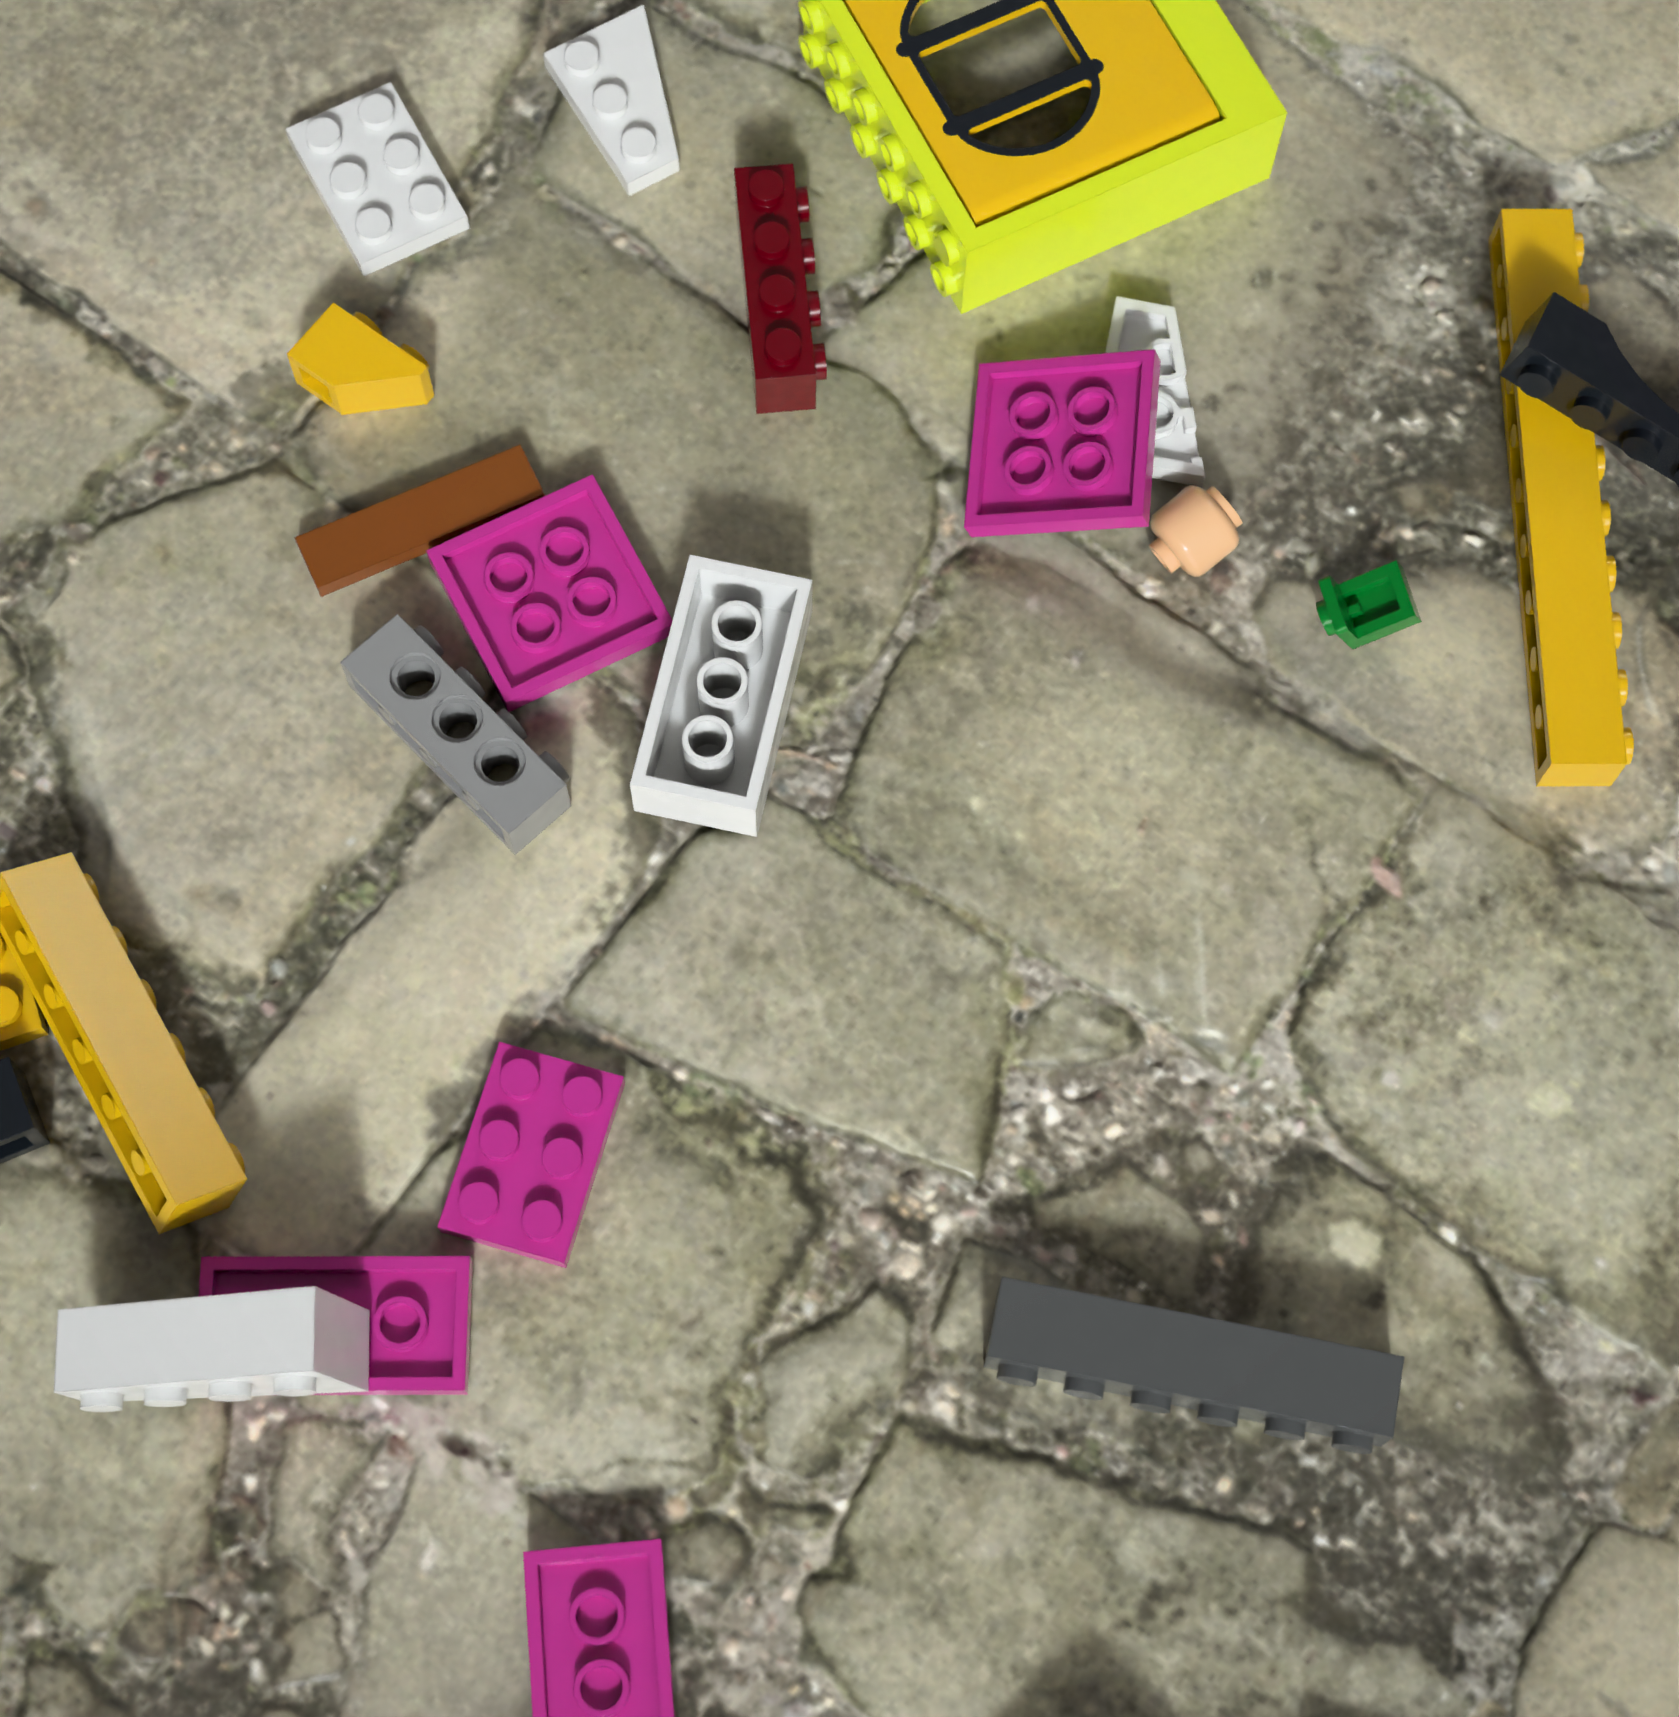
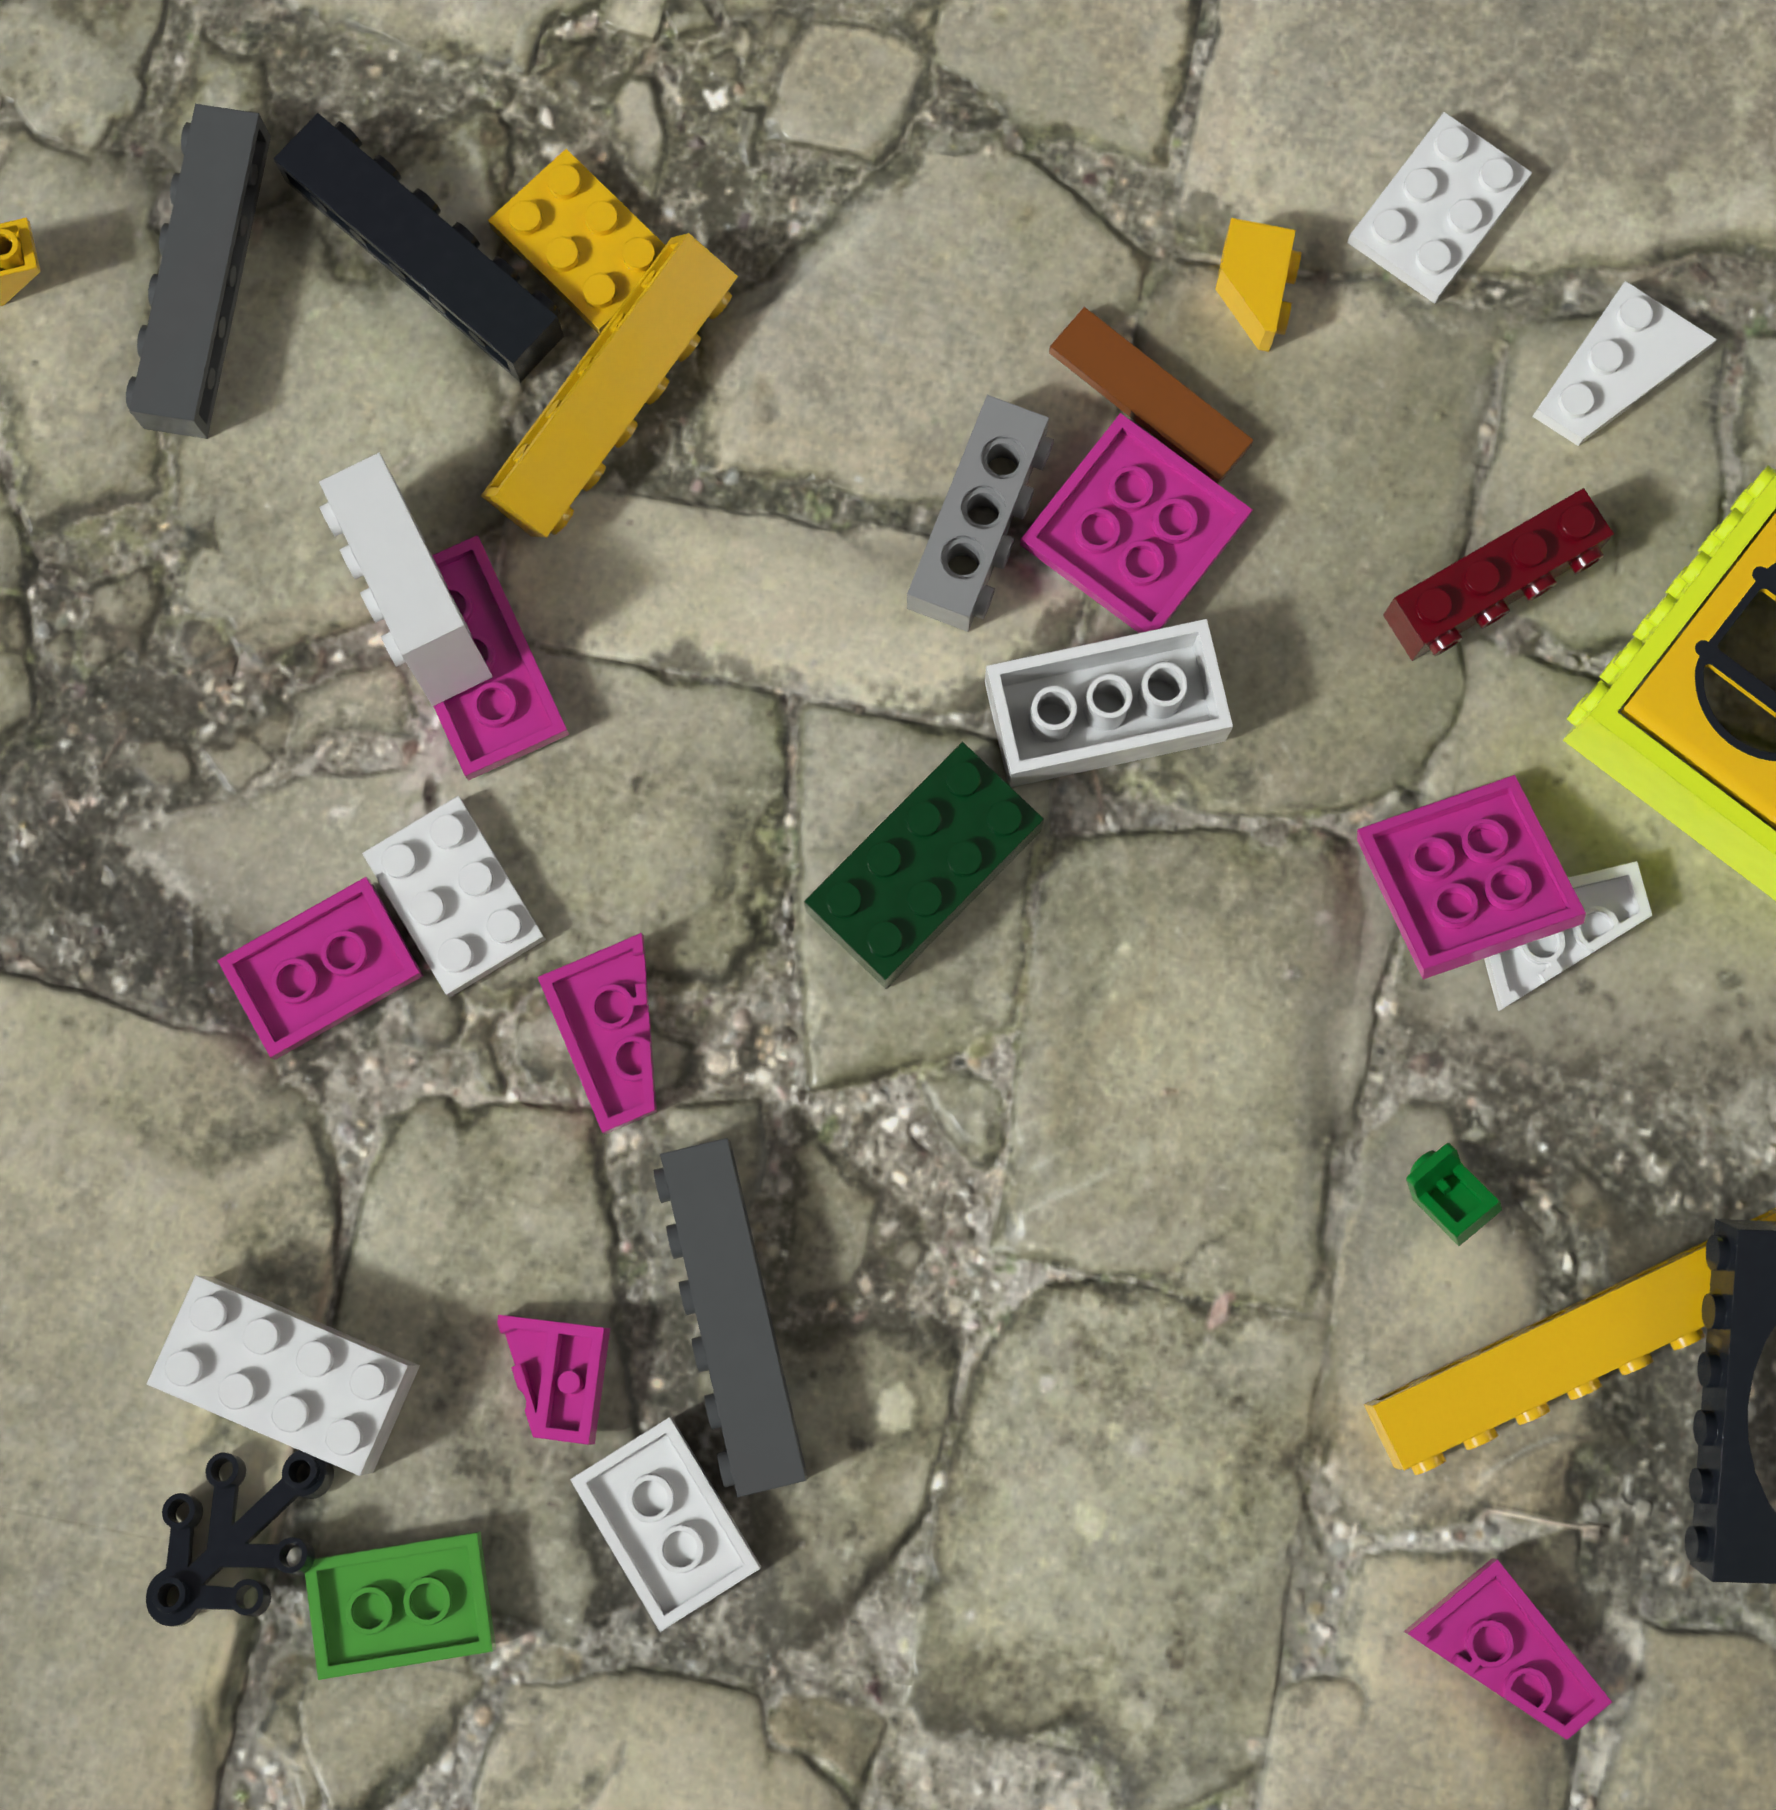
camera: 70 degrees right, 10 degrees up
(532, 1154) = (671, 738): dark pink plate -> none
(589, 1468) = (453, 896): none -> white plate
(802, 951) = (924, 865): none -> dark green brick
(820, 1363) = (607, 1029): none -> dark pink wing
(1174, 1584) = (559, 1374): none -> dark pink wing
(1194, 530) = (1448, 1021): light nougat head -> none
(1384, 1536) = (665, 1523): none -> white plate

